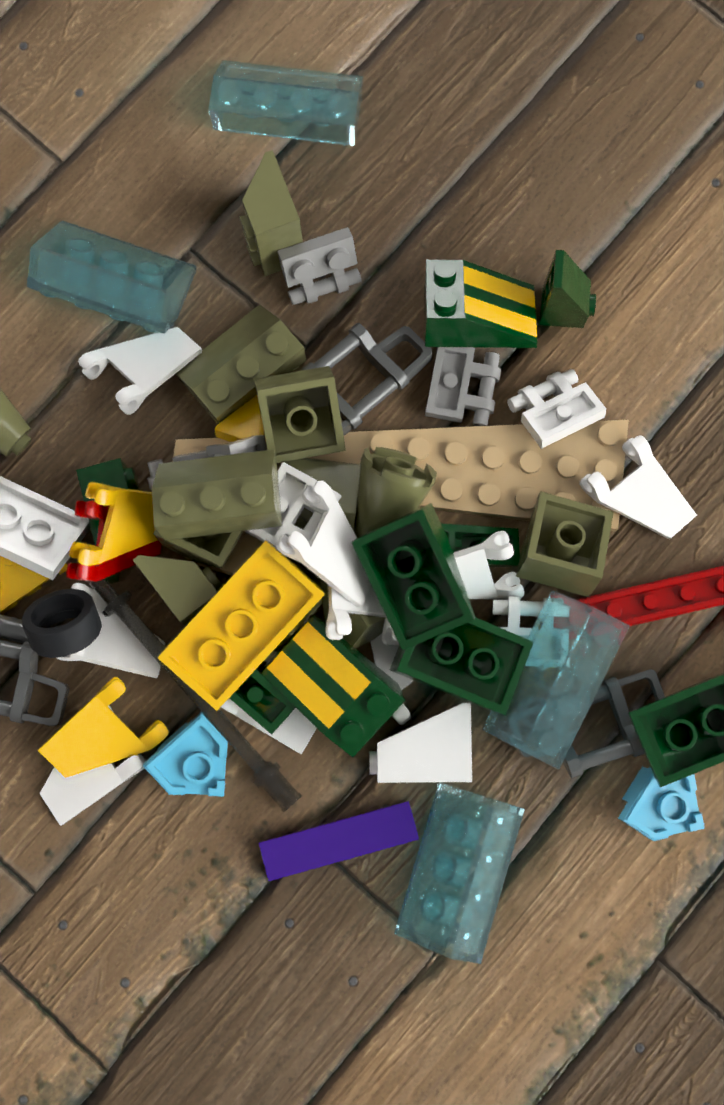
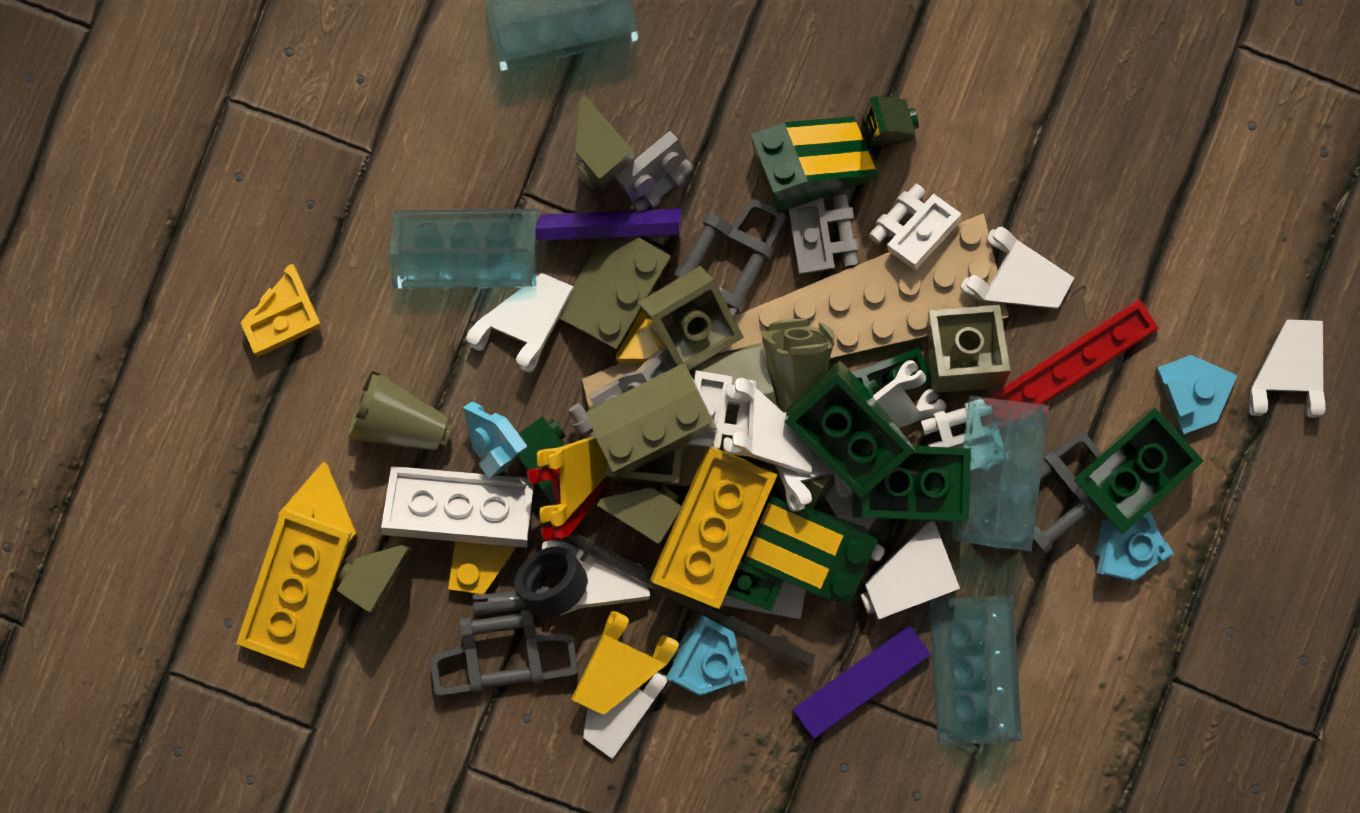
camera: 25 degrees left, 5 degrees up
(64, 464) = (492, 439): none -> medium azure plate
(257, 300) = (609, 224): none -> dark purple tile

